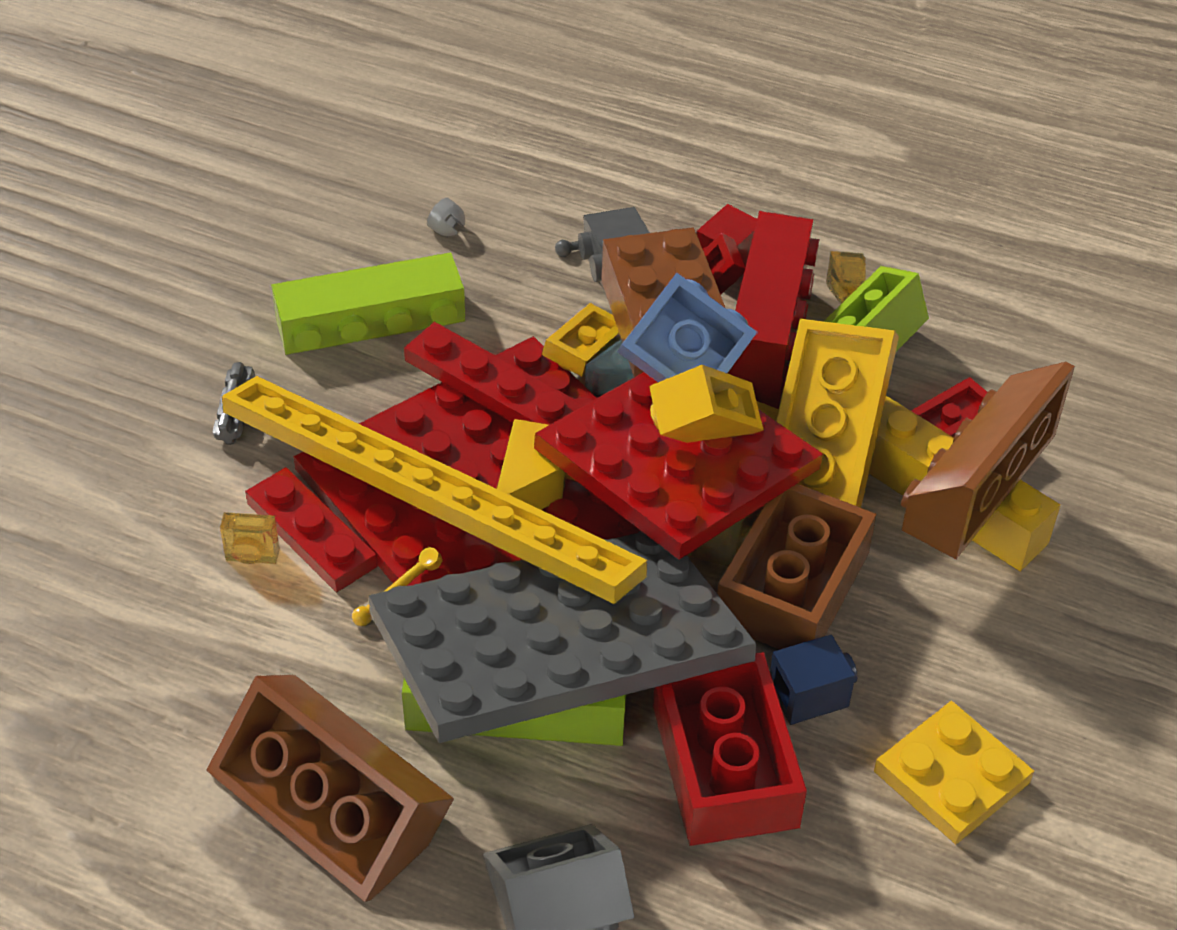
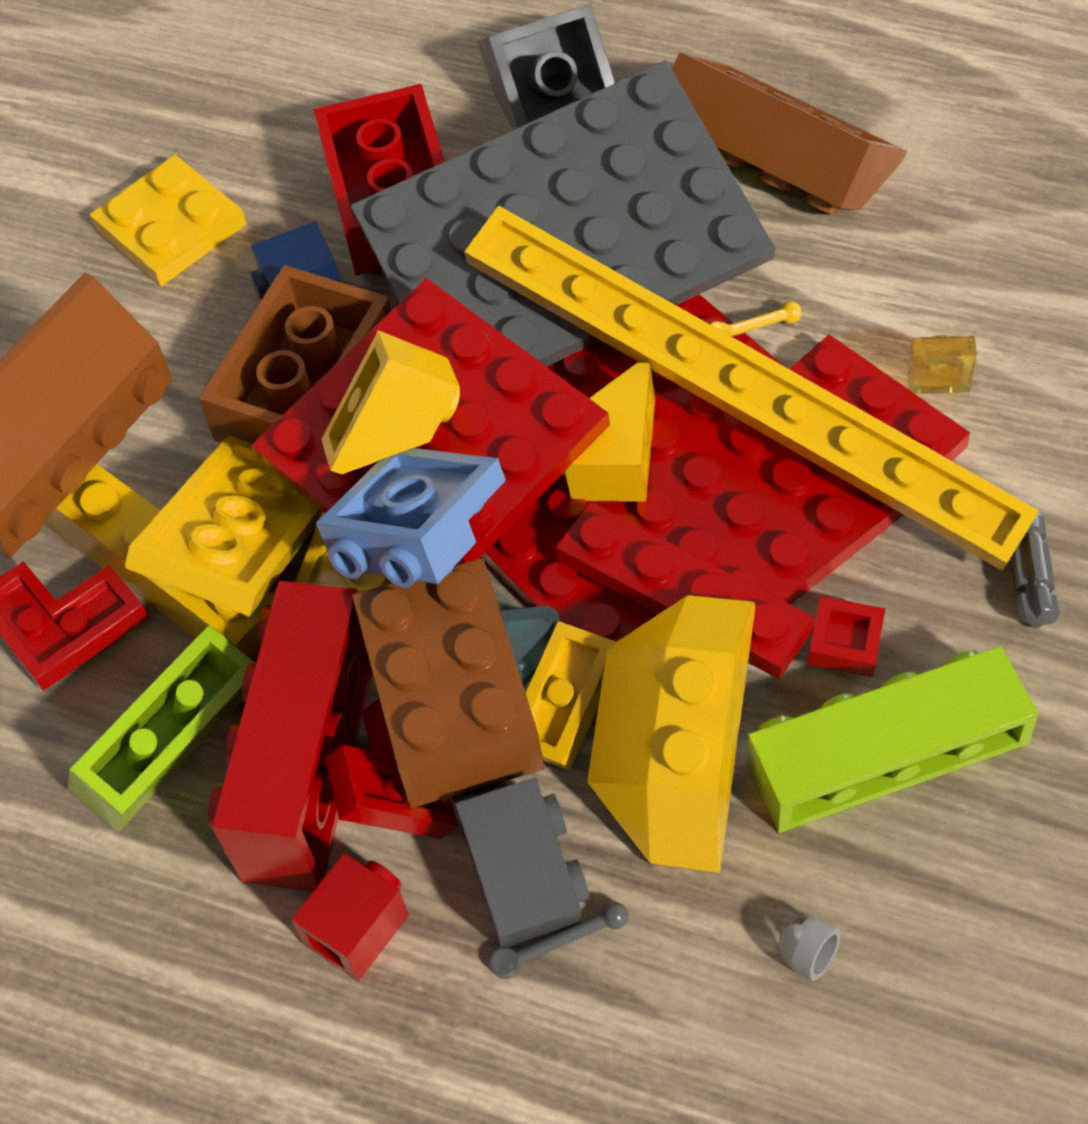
camera: 175 degrees left, 10 degrees up
(380, 366) = (846, 636): none -> red plate
(507, 296) = (673, 729): none -> yellow wedge
(845, 273) = (172, 845): clear yellow slope -> none

